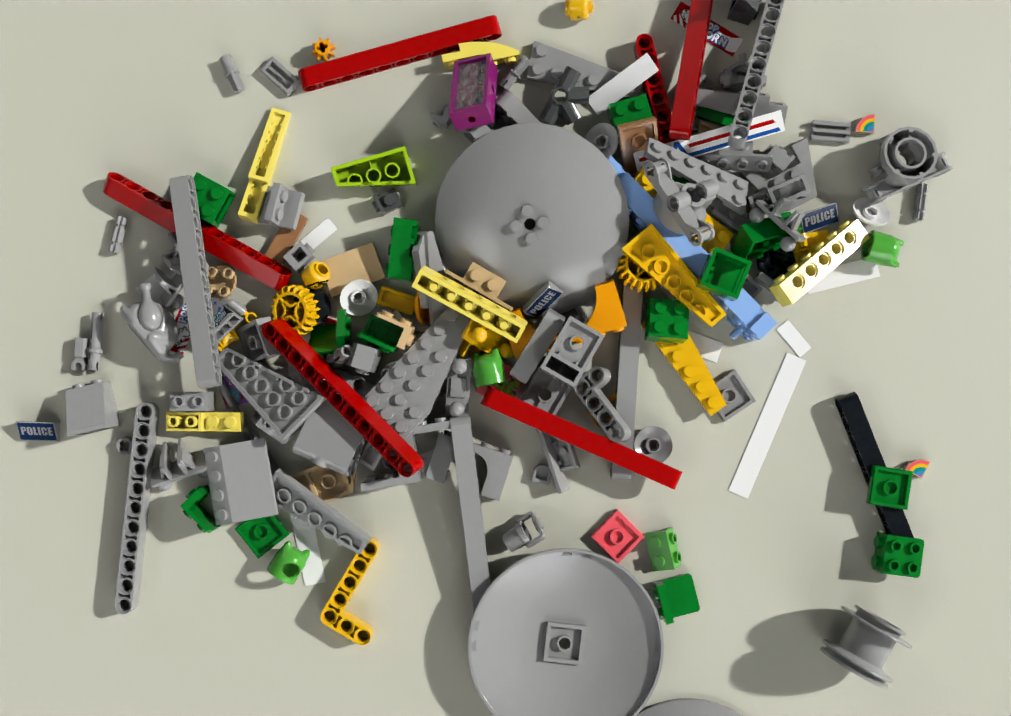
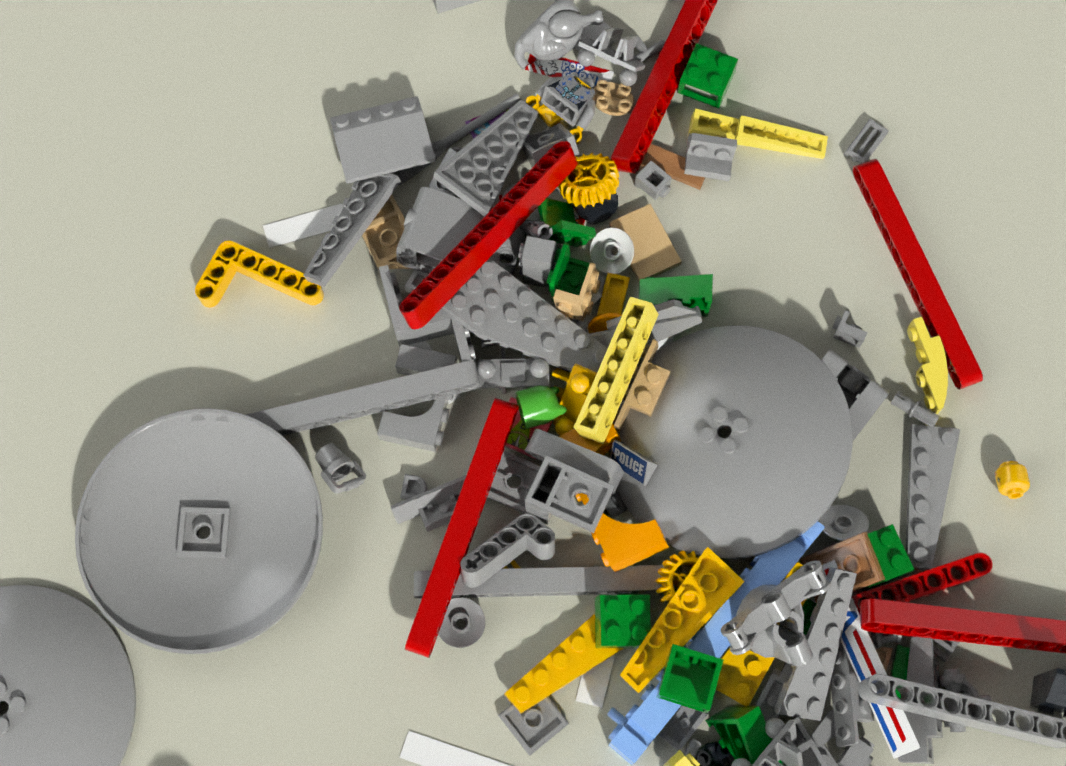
camera: 90 degrees right, 15 degrees down
(119, 445) = (415, 13): light grey bush -> none
(131, 515) = (337, 30): light grey beam -> none
(172, 471) = (396, 79): light grey piece -> none
(192, 401) = (471, 82): light grey brick -> none
(194, 510) = (347, 92): green bracket -> none
(195, 282) = (609, 66): light grey beam -> none
(205, 421) = (449, 97): light yellow slope -> none
(232, 73) = (861, 89): light grey axle -> none
(262, 534) = (322, 172): green tile -> none
(288, 563) = (292, 201): bright green piece -> none
(315, 275) = (633, 200): yellow head -> none
(320, 233) = (684, 203): white sticker -> none
(328, 50) = (905, 185): light orange gear -> none
(378, 170) = (769, 260): lime wedge -> none
(387, 202) = (732, 274): dark grey bracket -> none
(473, 92) = (880, 353): magenta brick -> none
(573, 96) = (897, 479): dark grey piece -> none
(616, 536) = (340, 589): coral tile -> none
(622, 83) = (923, 542): white sticker -> none
(663, 549) = (326, 649): bright green bracket -> none
(675, 597) = (265, 668): green bracket -> none
(717, 34) = (1010, 661): sticker -> none

